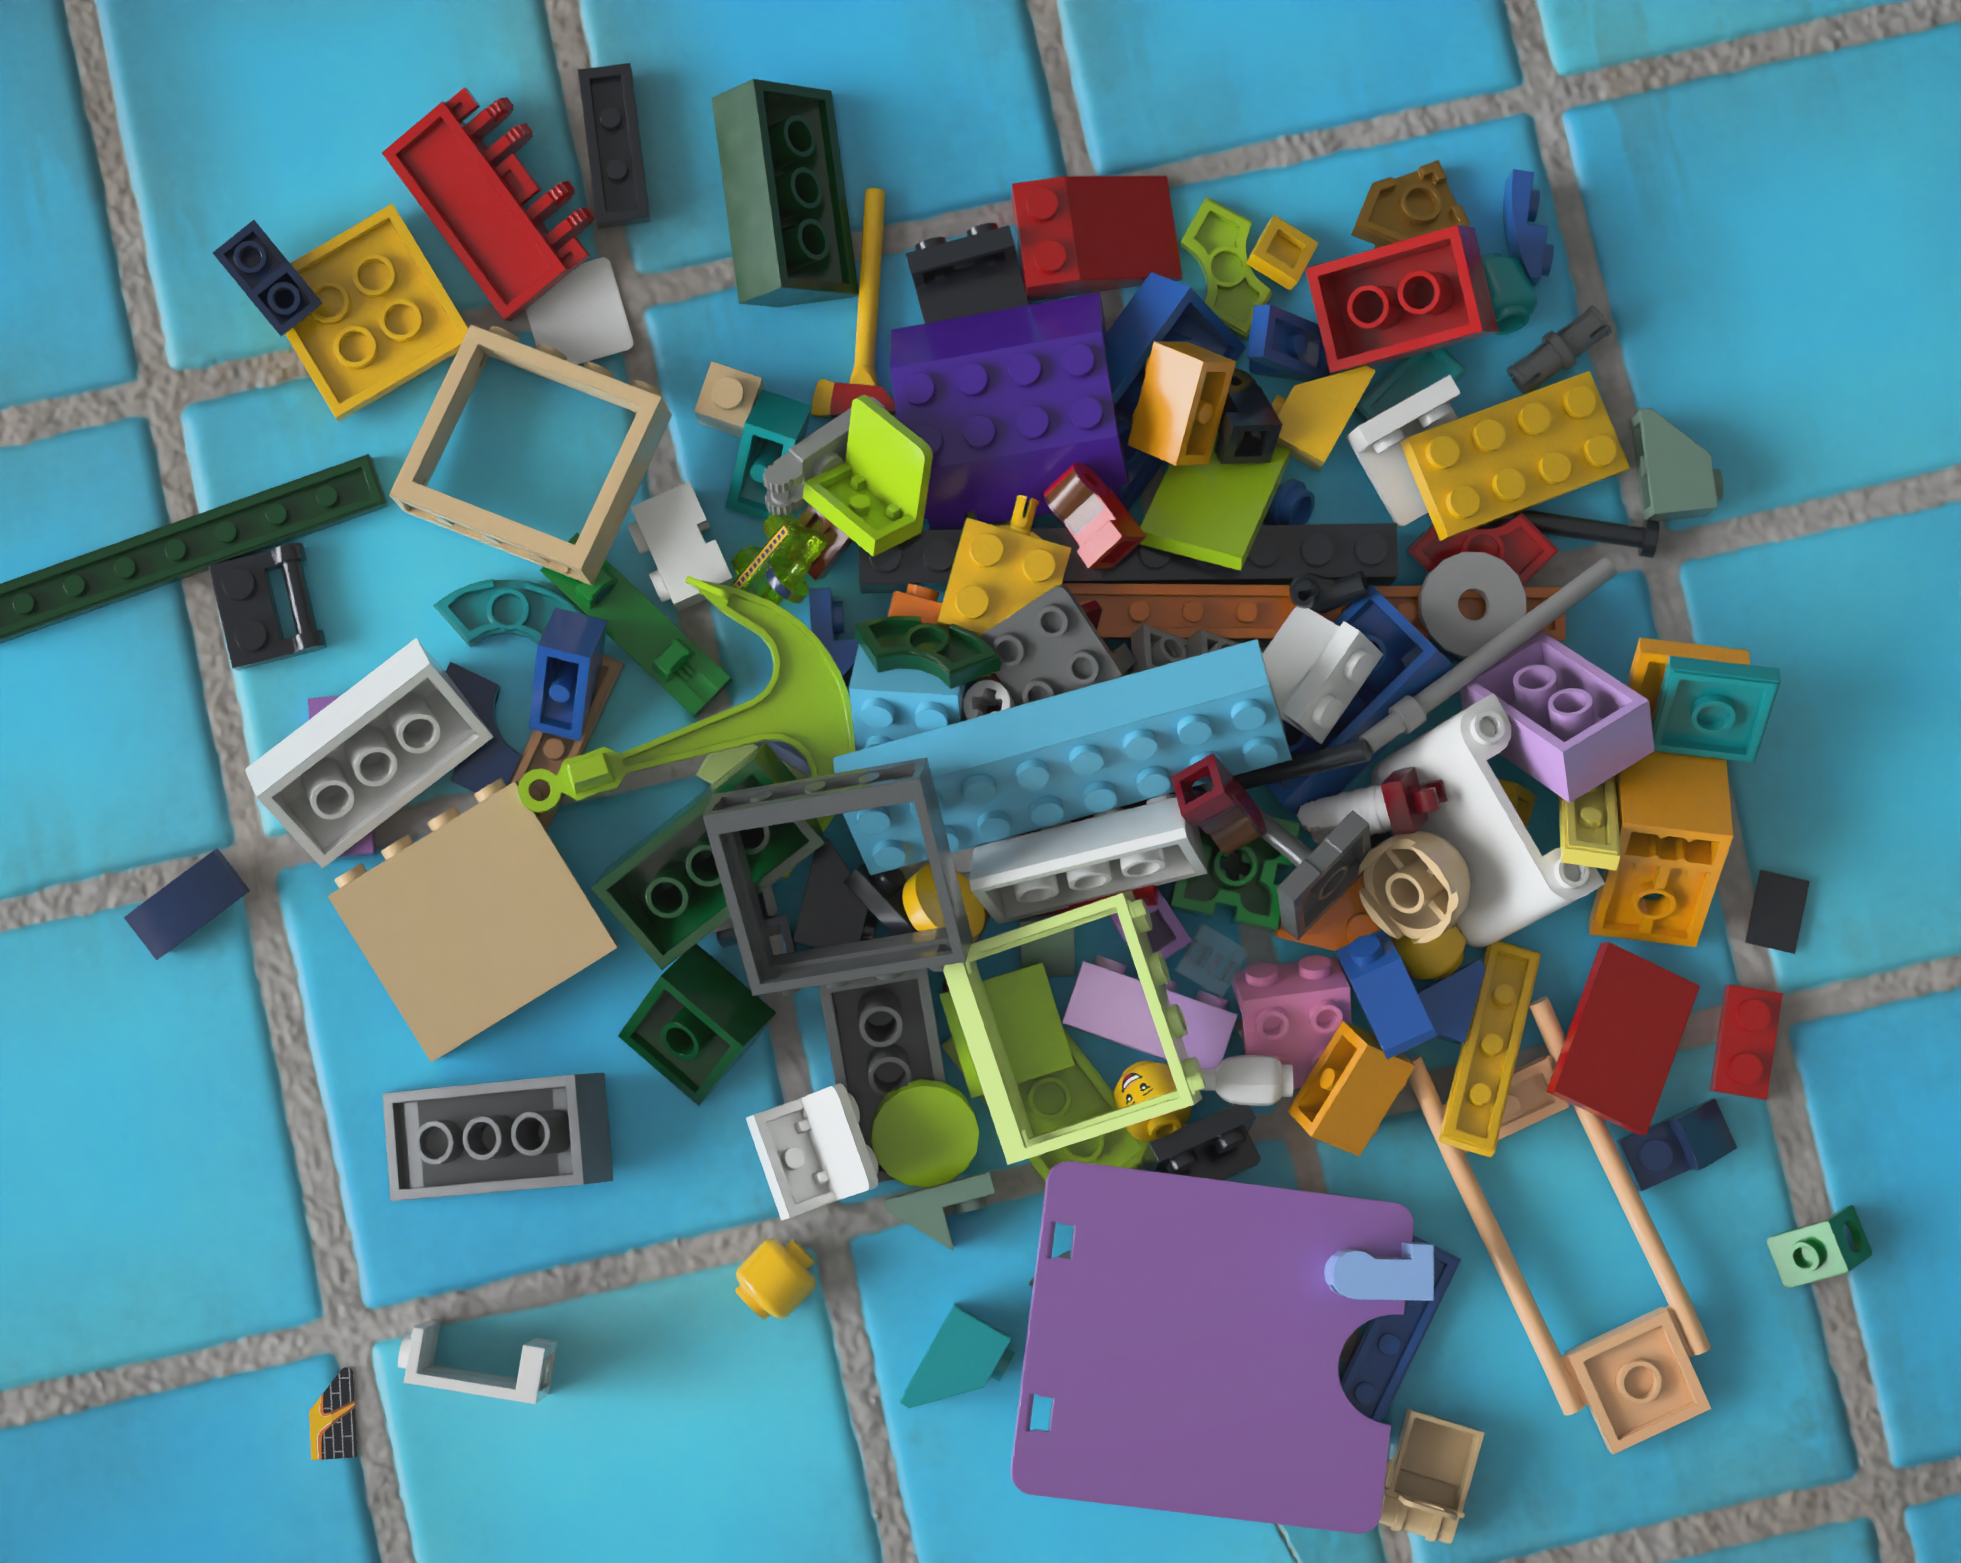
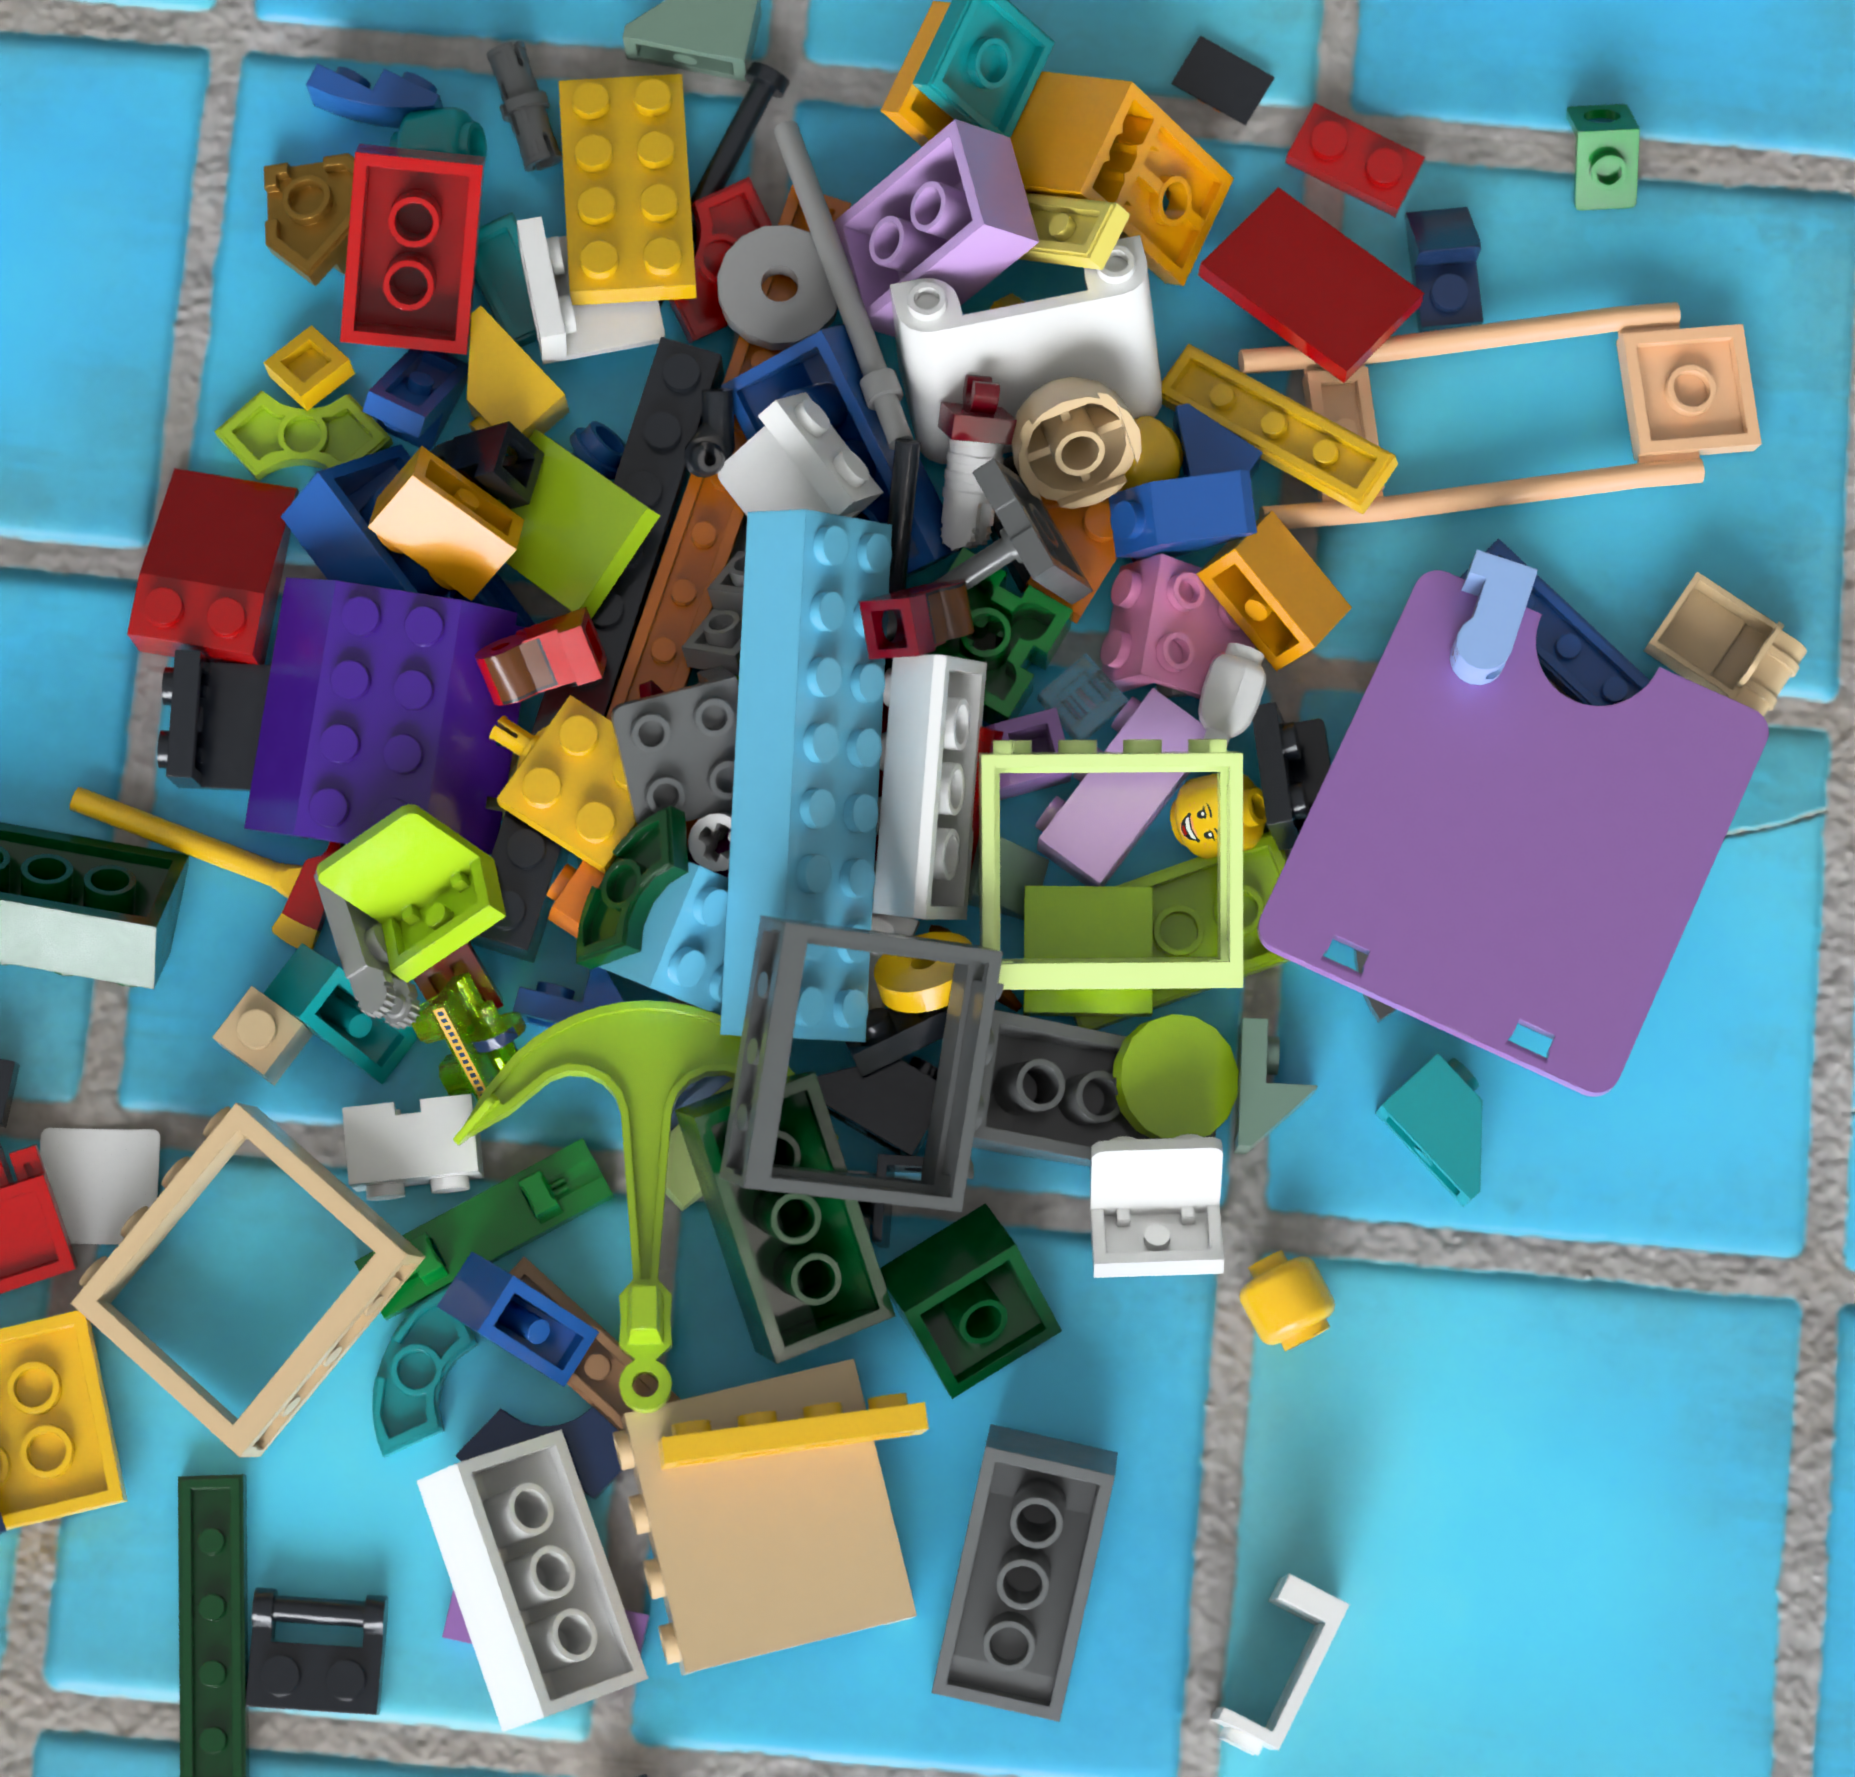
camera: 70 degrees left, 5 degrees down
(548, 938) = (763, 1435): none -> yellow plate

